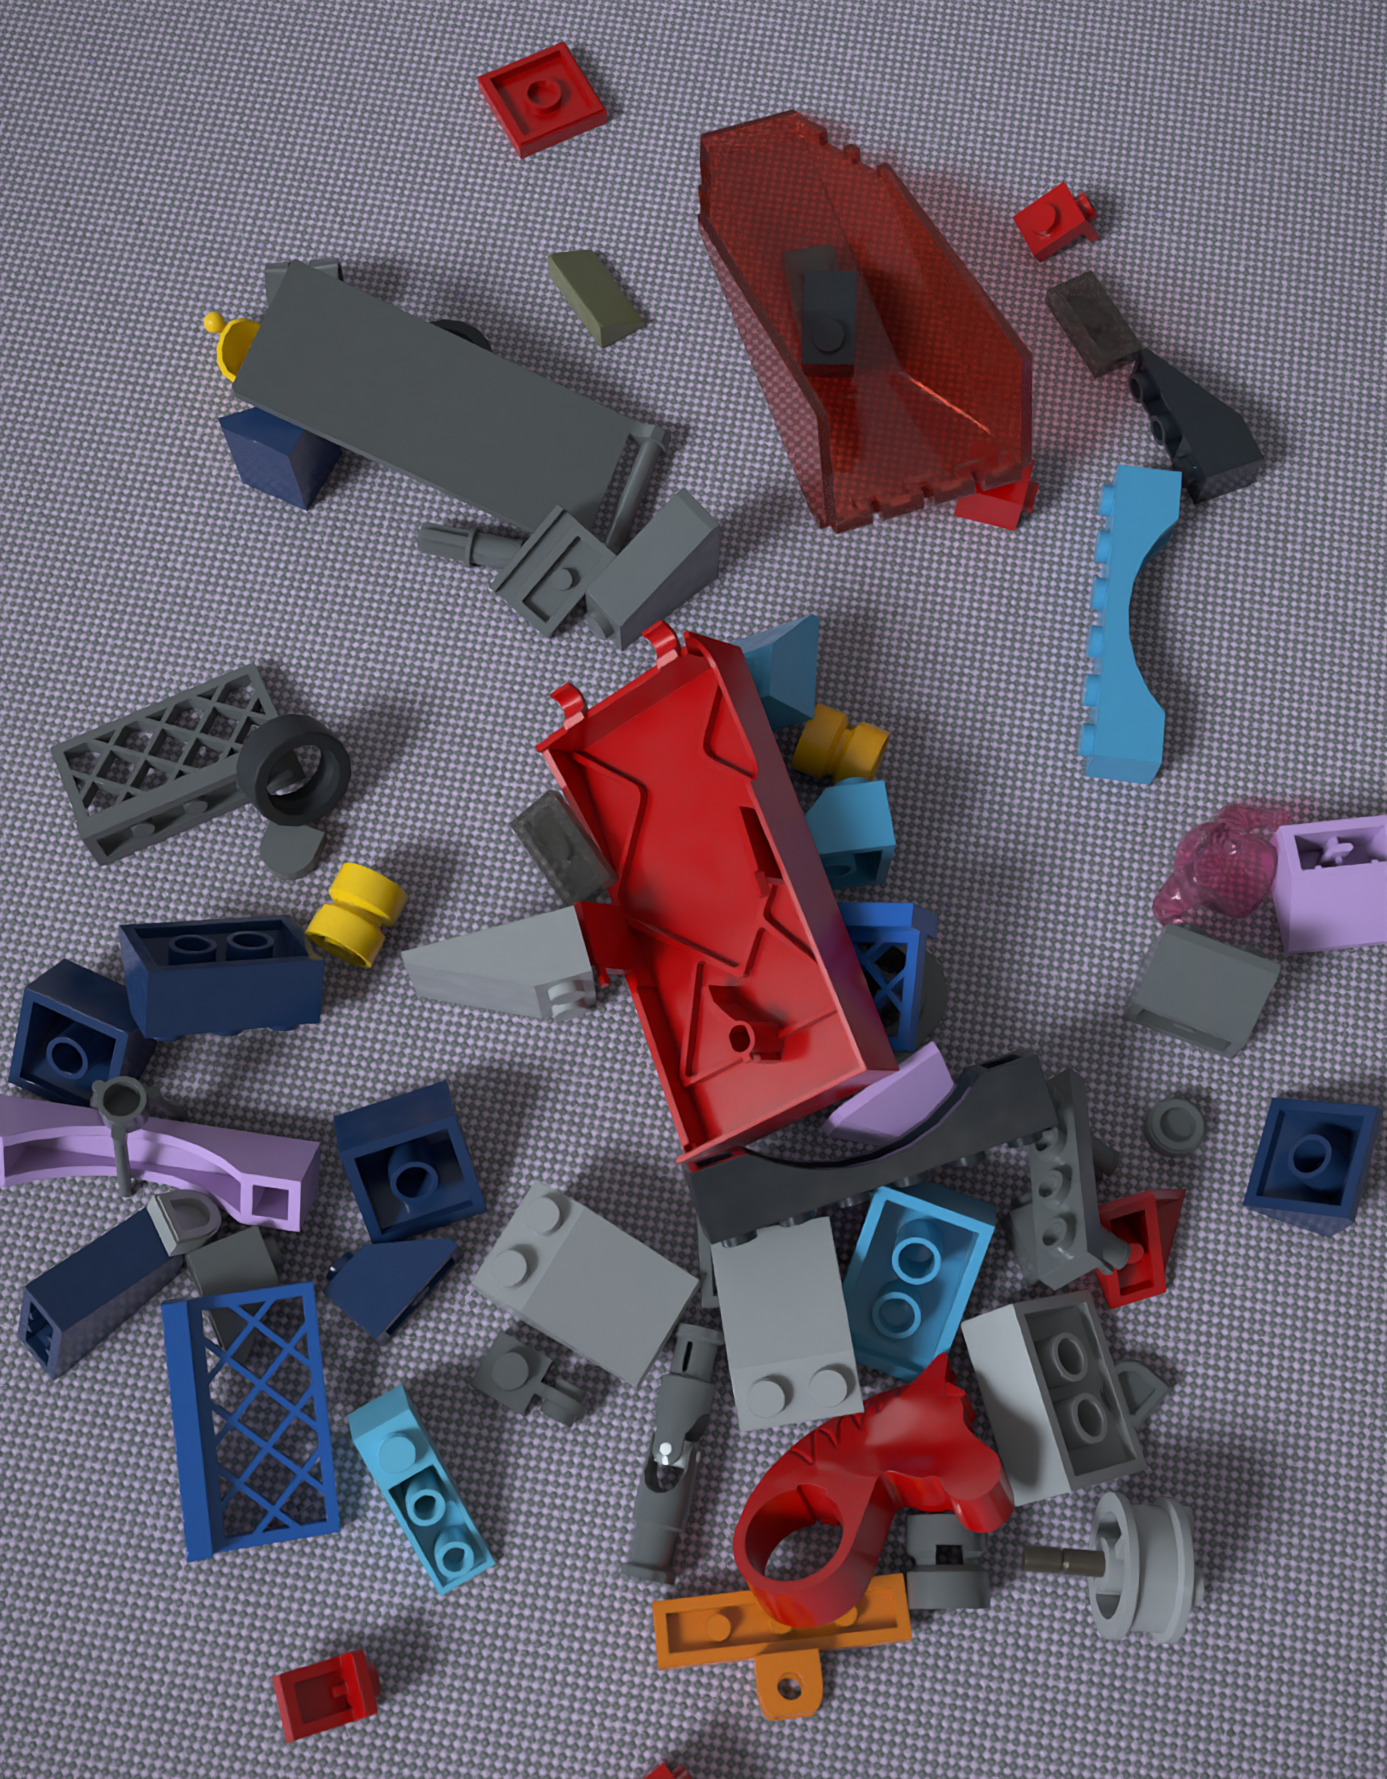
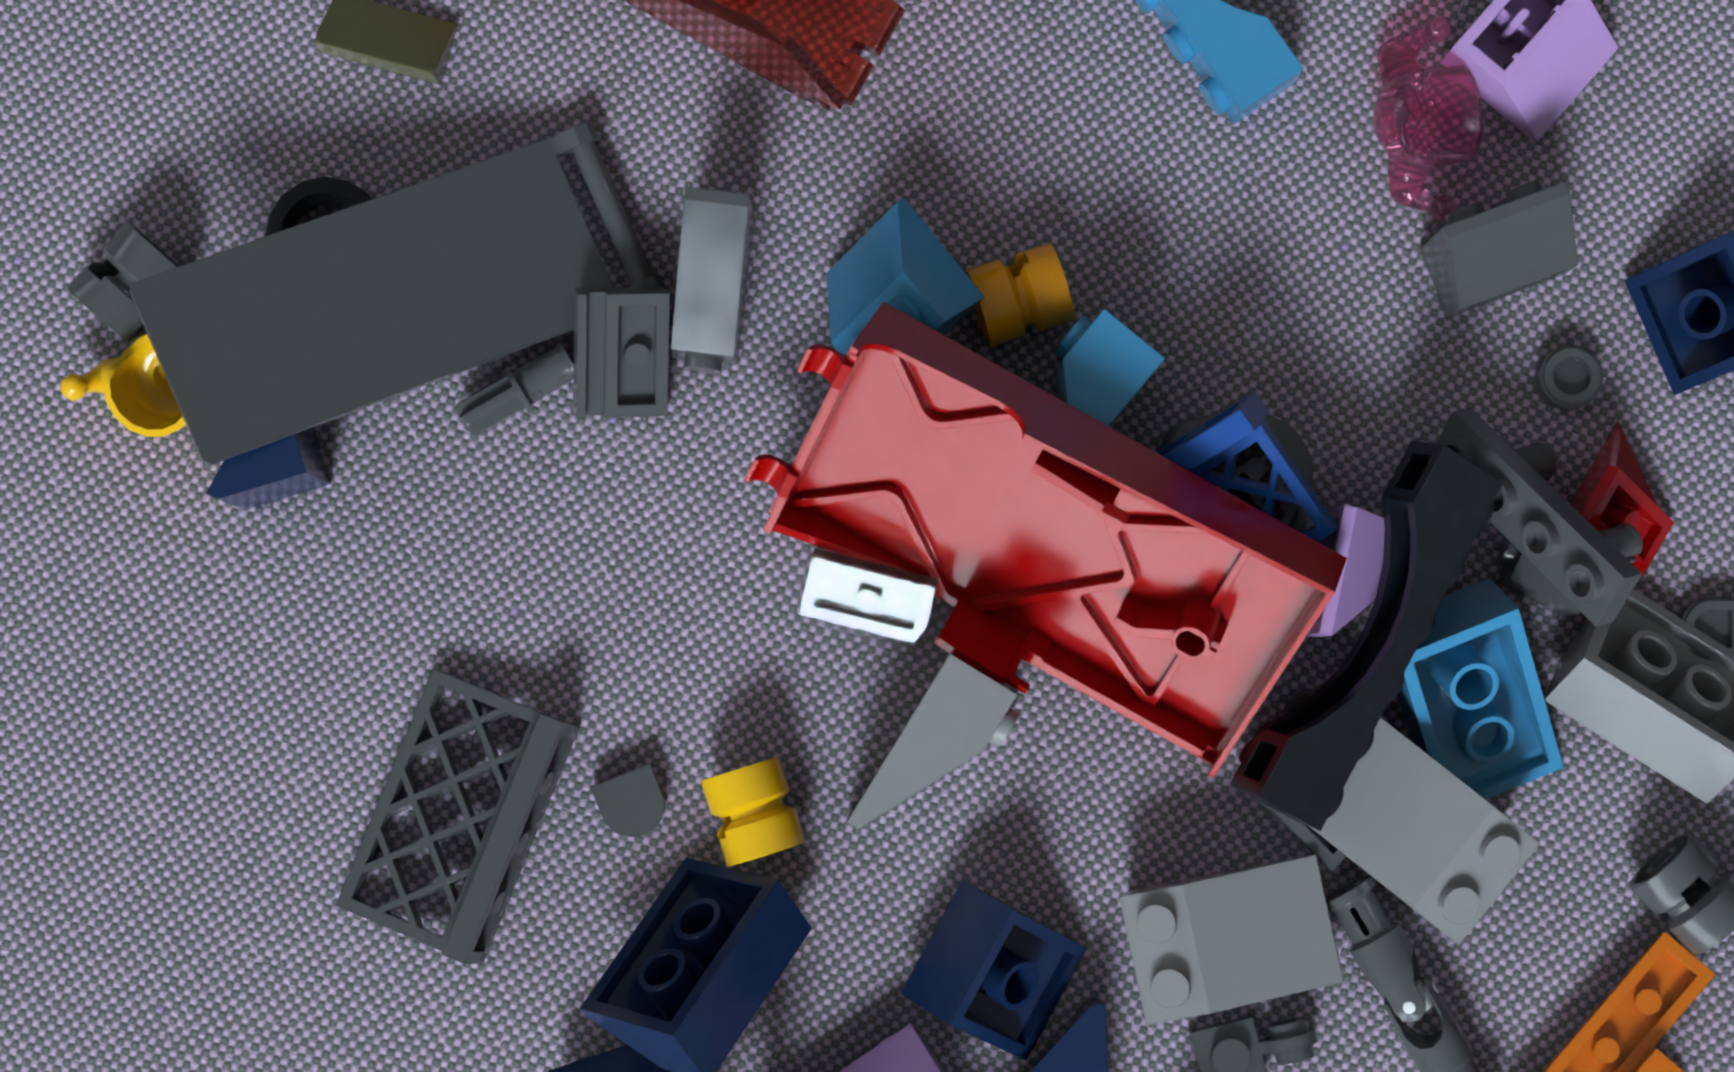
camera: 40 degrees left, 15 degrees up
(275, 740) = (554, 734): black tyre -> none
(858, 1471) = (1593, 841): red animal -> none

